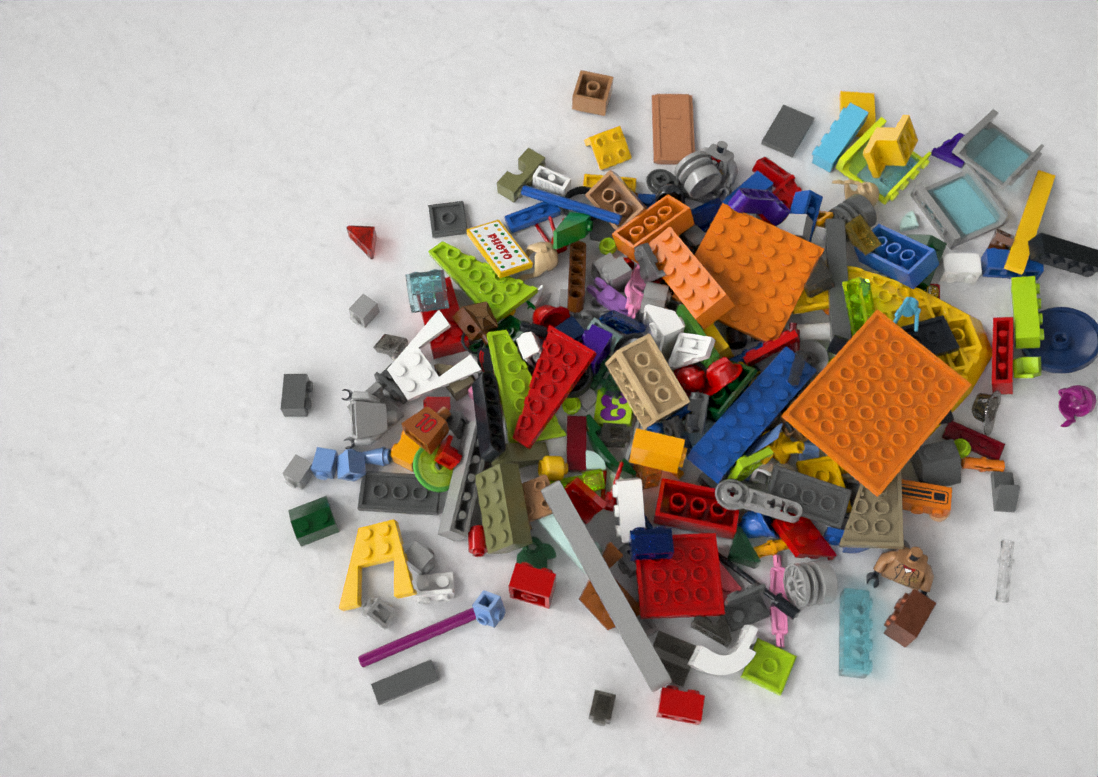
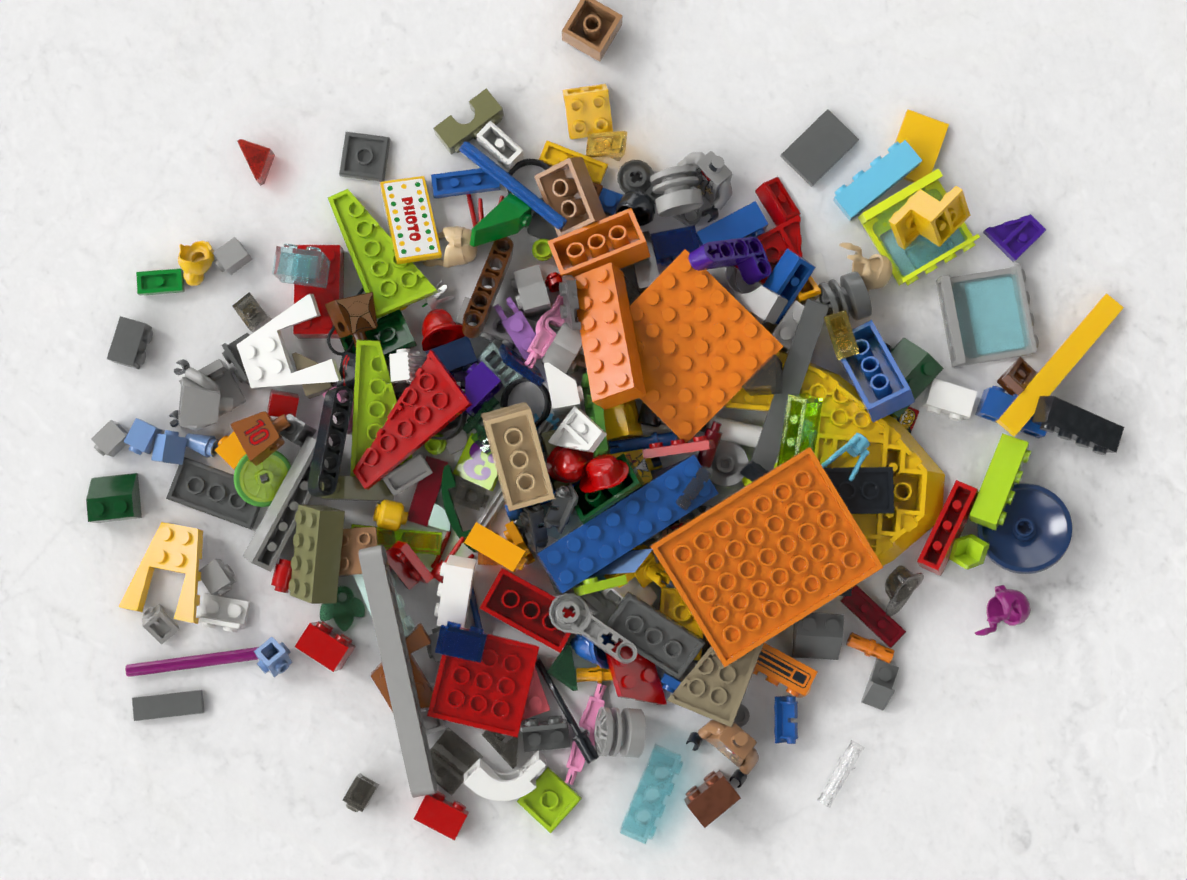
camera: 15 degrees right, 20 degrees up
(309, 344) = (160, 282): none -> green plate
(335, 322) = (195, 261): none -> yellow piece
(447, 455) = (277, 468): red panel -> none
(538, 330) = (416, 345): black axle -> none
(556, 432) = (407, 474): none -> light grey tile
(632, 162) = (607, 145): none -> clear yellow slope
(672, 127) = (678, 104): nougat piece -> none
(908, 222) = (916, 318): light aqua tile -> none
(944, 547) = (785, 709): none -> blue hinge
(963, 447) = (852, 624): lime plate -> none
(995, 152) = (1062, 258): panel -> none

